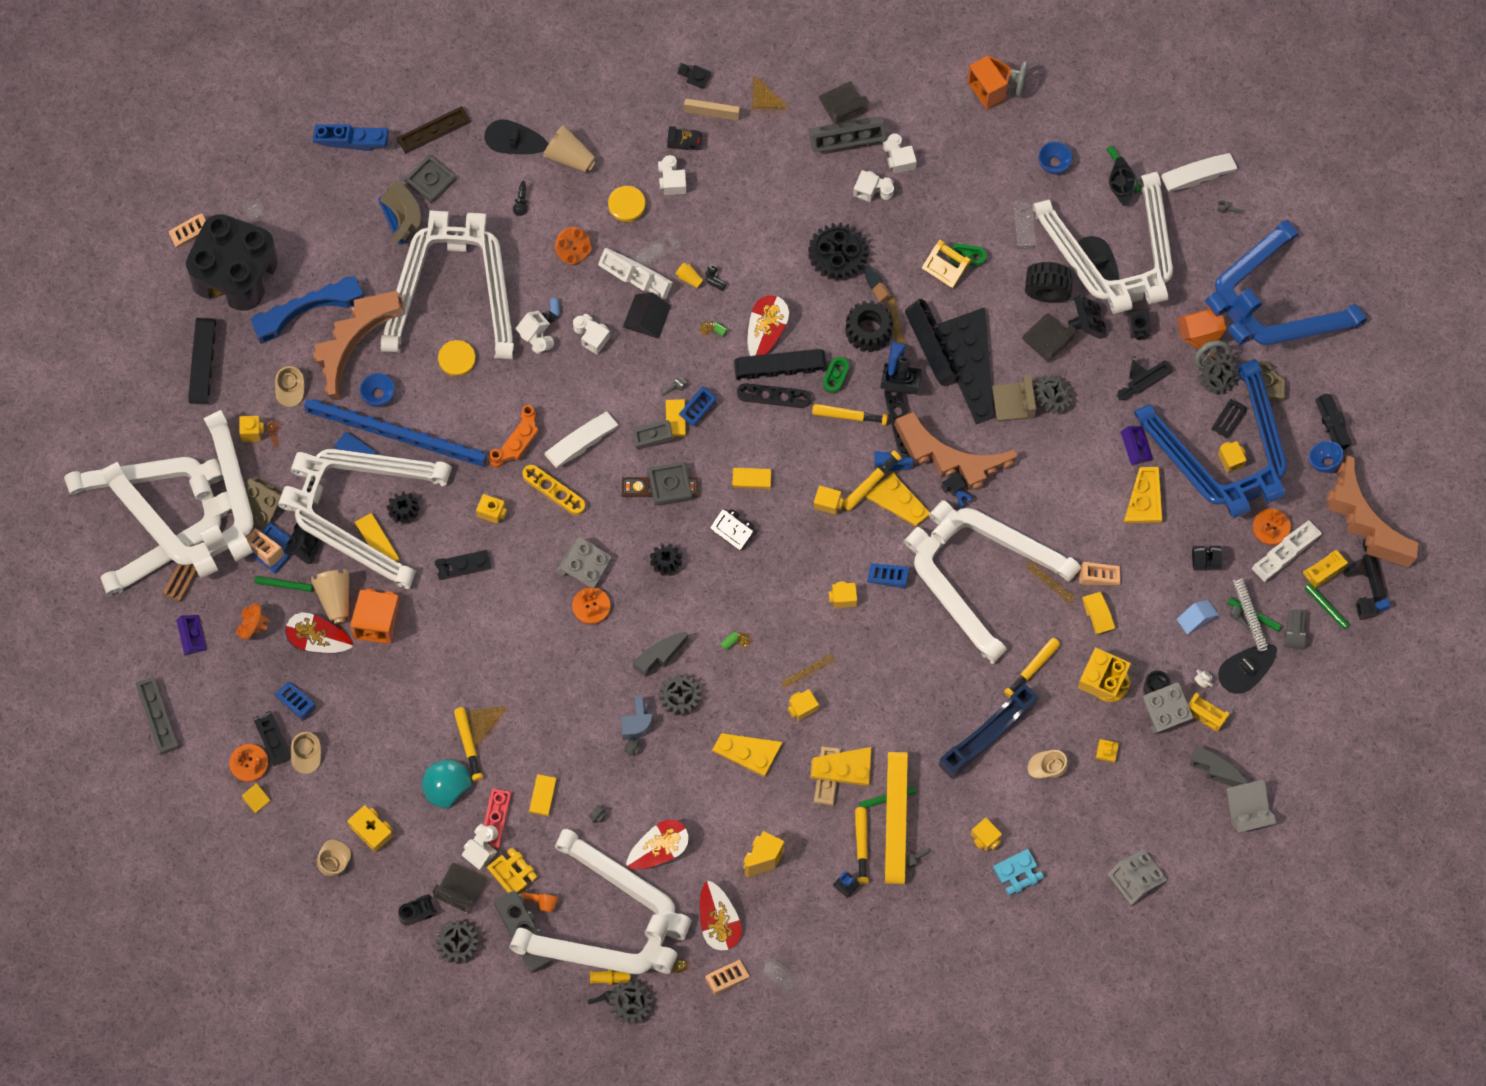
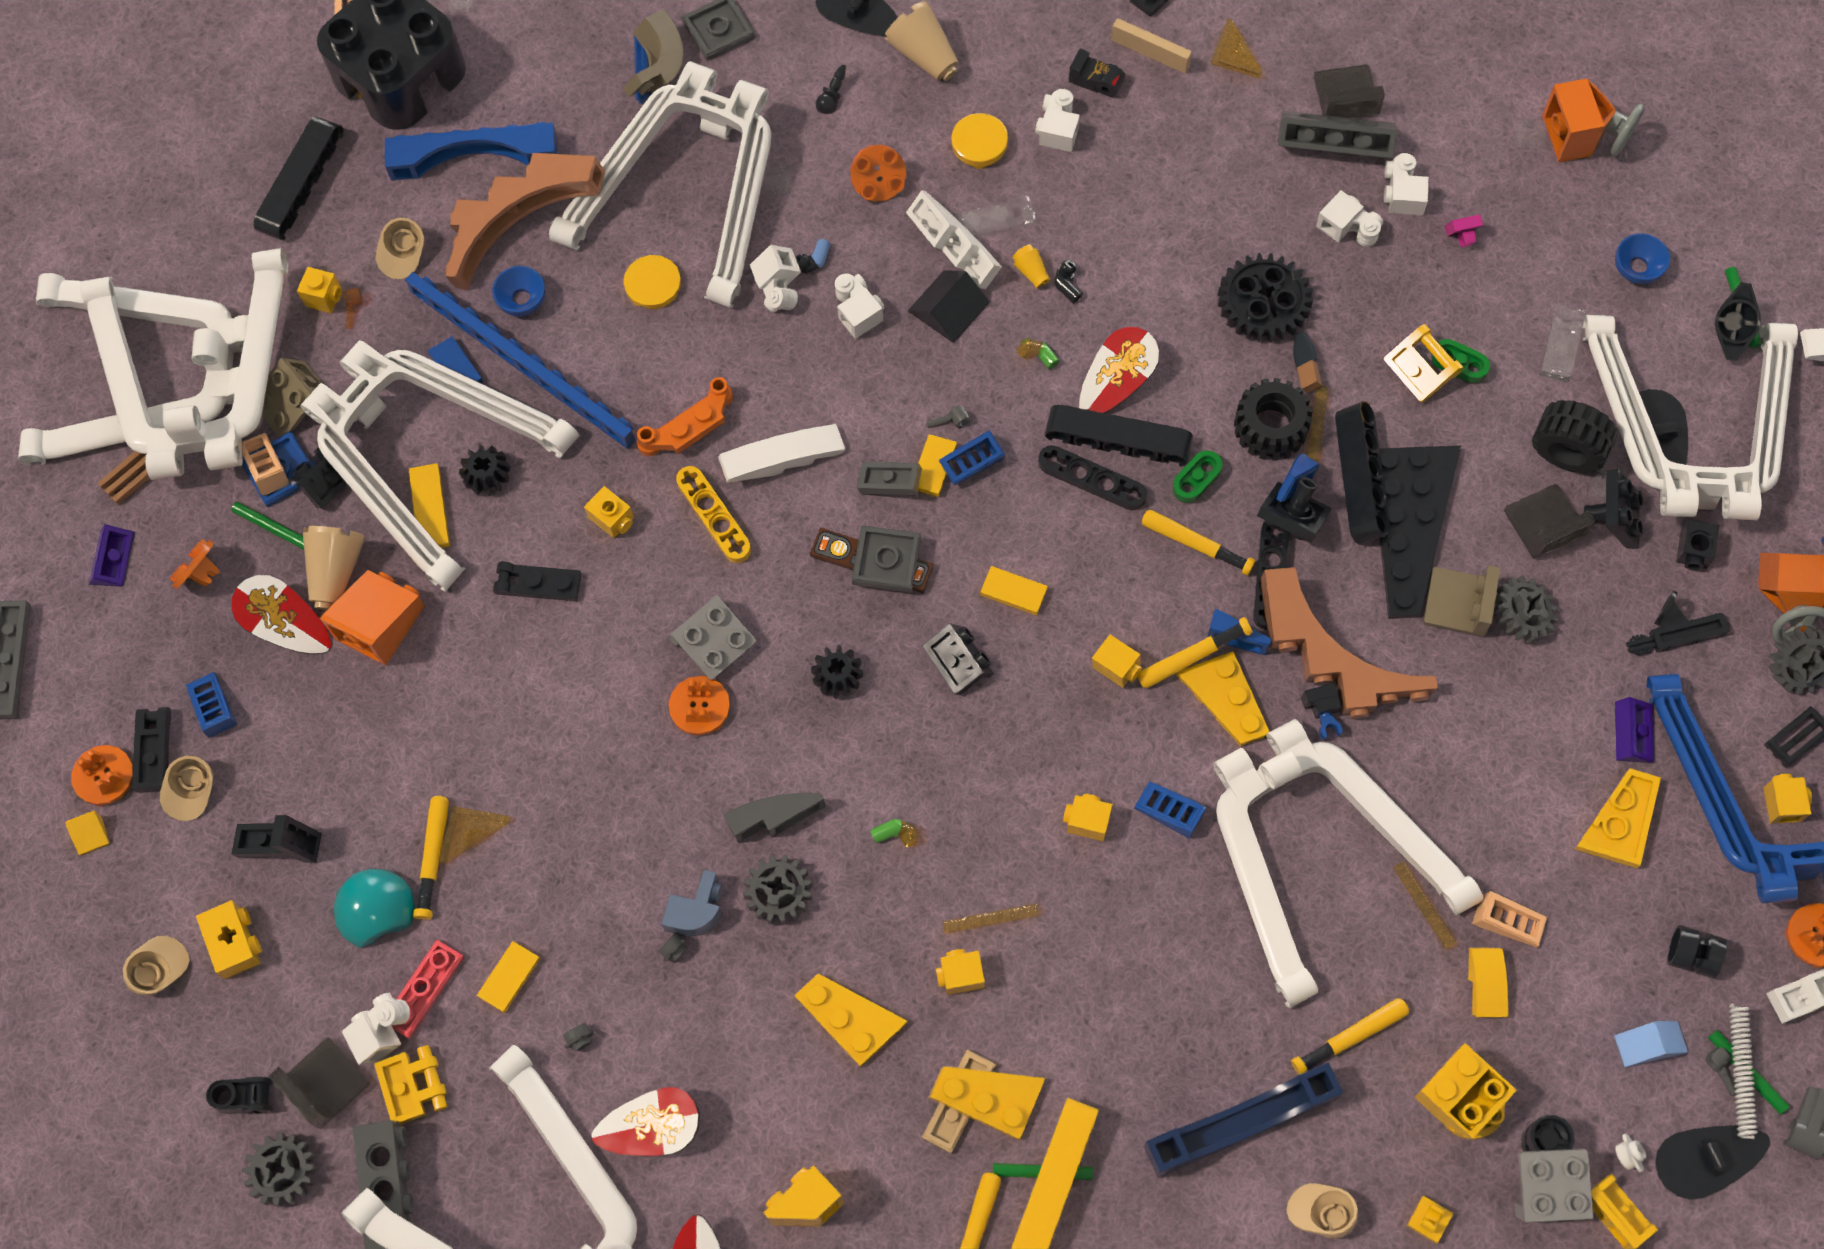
camera: 25 degrees right, 0 degrees up
(372, 764) = (278, 839): none -> black bracket
(546, 902) = (440, 1155): orange bar -> none
(944, 171) = (1464, 229): none -> dark pink tile

